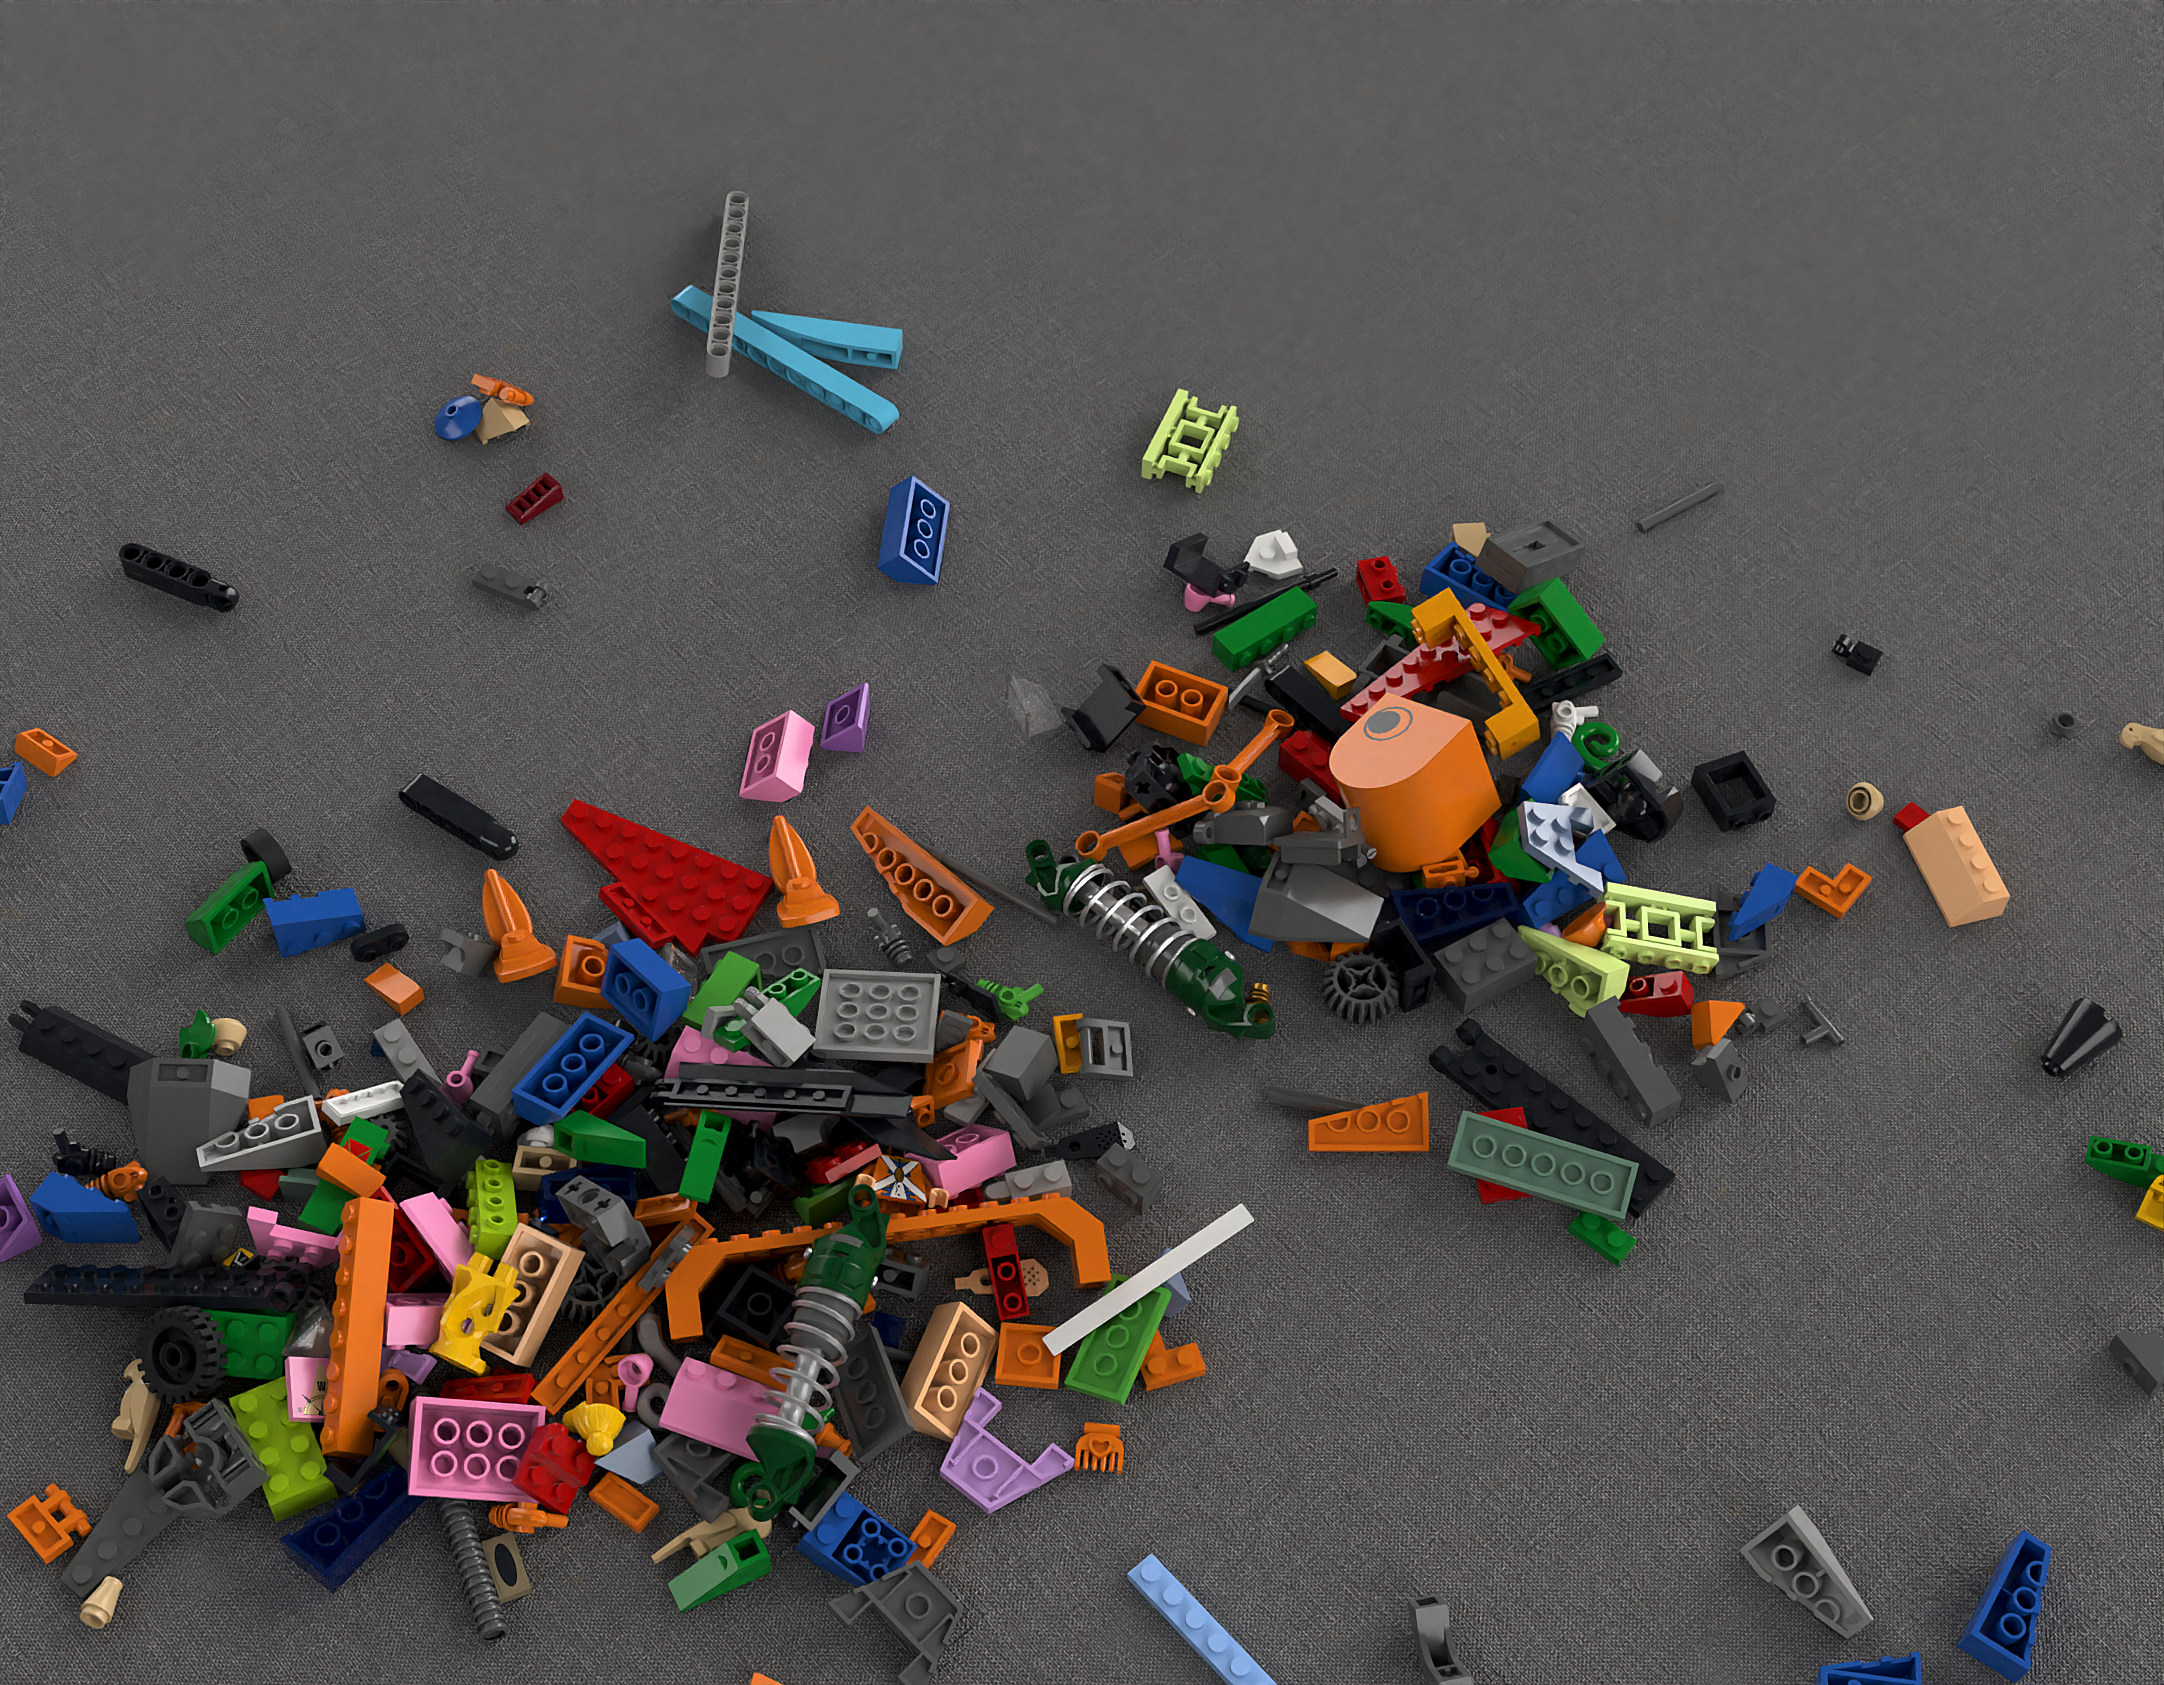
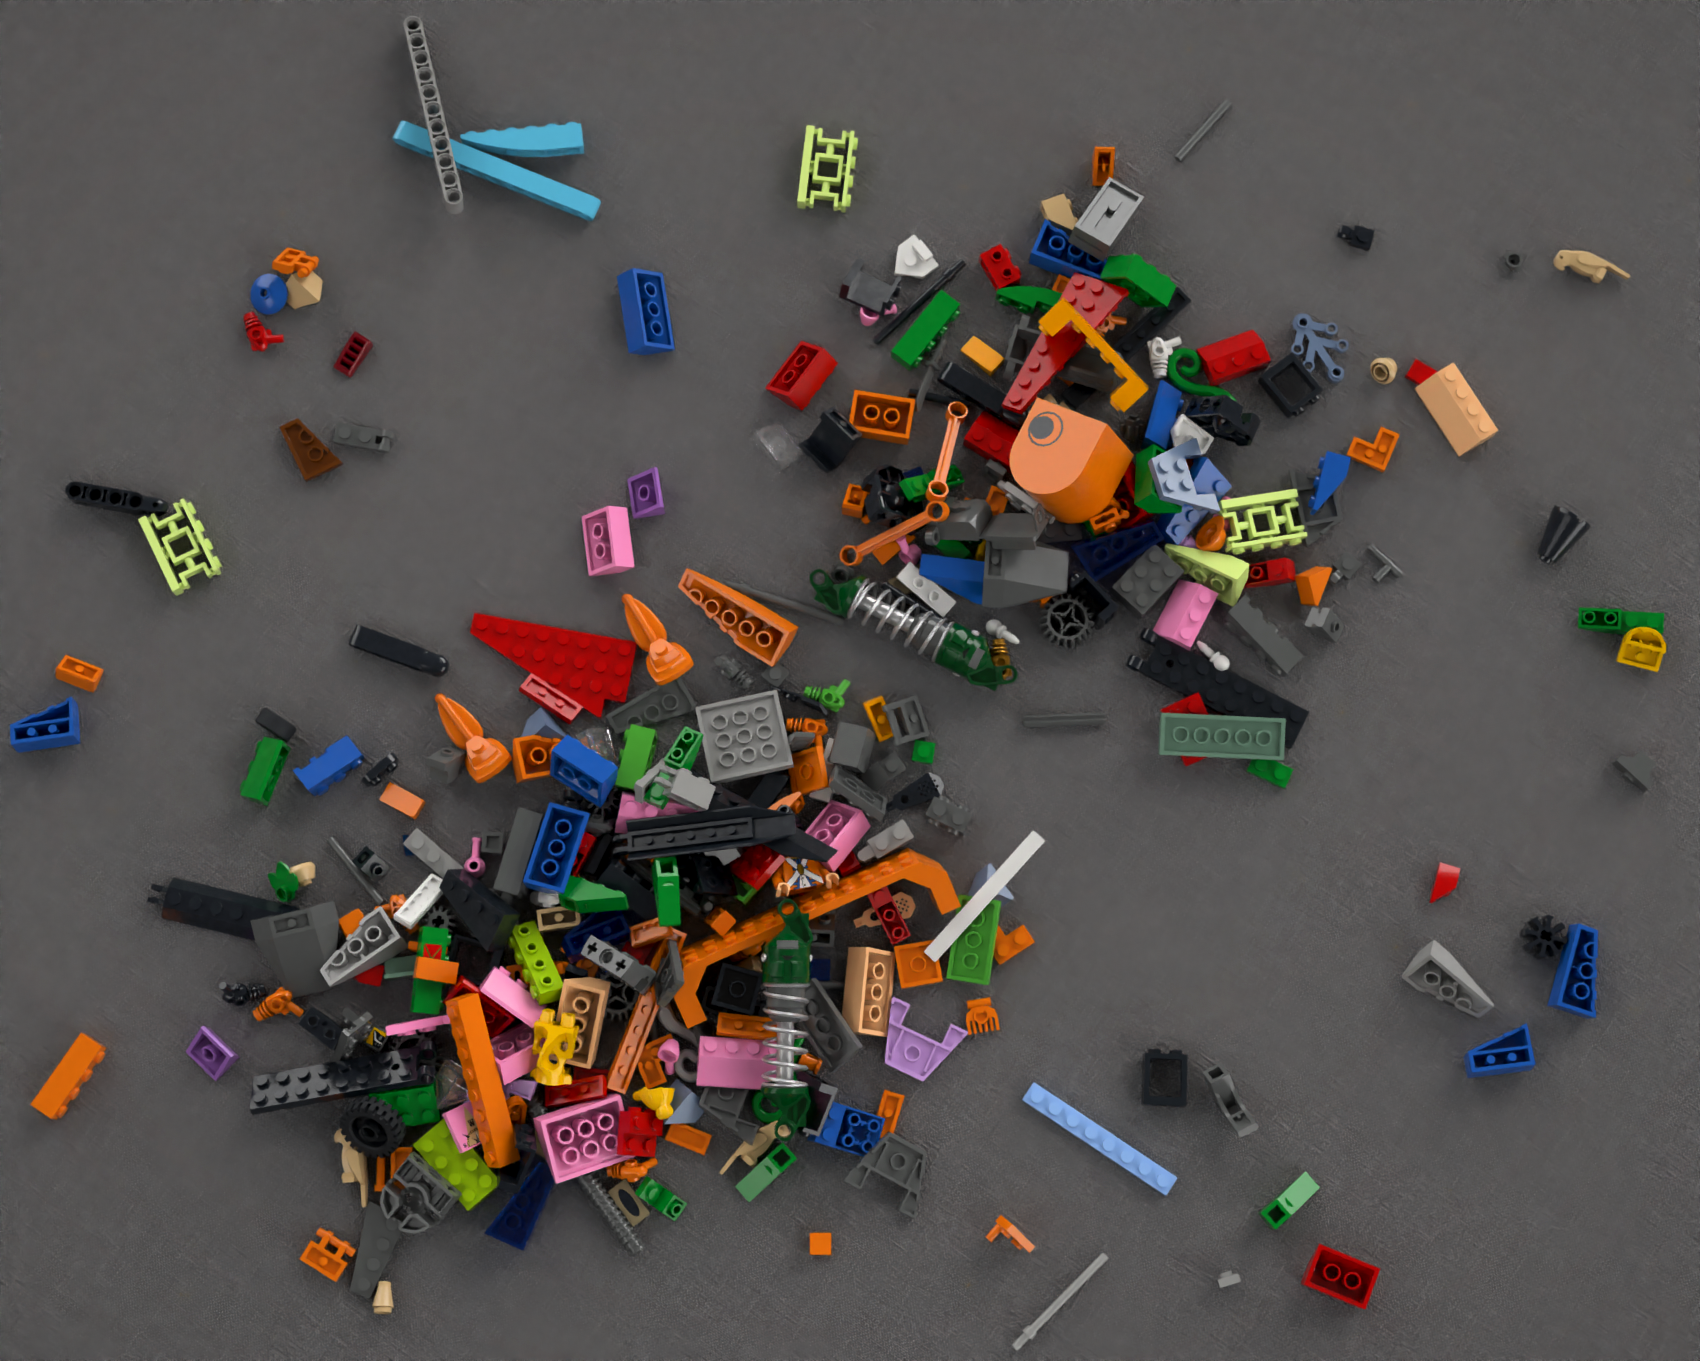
camera: 15 degrees left, 25 degrees up
(81, 1213) = (255, 1039): blue slope -> none
(212, 646) = (166, 552): none -> yellowish green fence
(427, 453) = (258, 335): none -> red piece
(437, 584) = (308, 451): none -> reddish brown wing
(553, 1572) = (660, 1198): none -> green slope
(765, 1220) = (719, 920): none -> orange slope
(1091, 641) = (802, 375): none -> red slope
(1118, 1098) = (923, 752): none -> green plate
(1261, 974) = (996, 629): none -> white bar
(1337, 1626) = (1162, 1100): none -> black window
(1383, 1127) = (1107, 730): orange wing -> none
(1531, 1016) = (1185, 613): none -> bright pink slope
(1543, 501) = (1102, 165): none -> orange slope
(1561, 1083) = (1220, 661): none -> white bar
(1669, 746) = (1233, 357): none -> red slope
(1767, 733) = (1317, 344): none -> sand blue plant
(1829, 1438) = (1445, 881): none -> red slope
(1967, 1547) = (1539, 930): none -> black gear

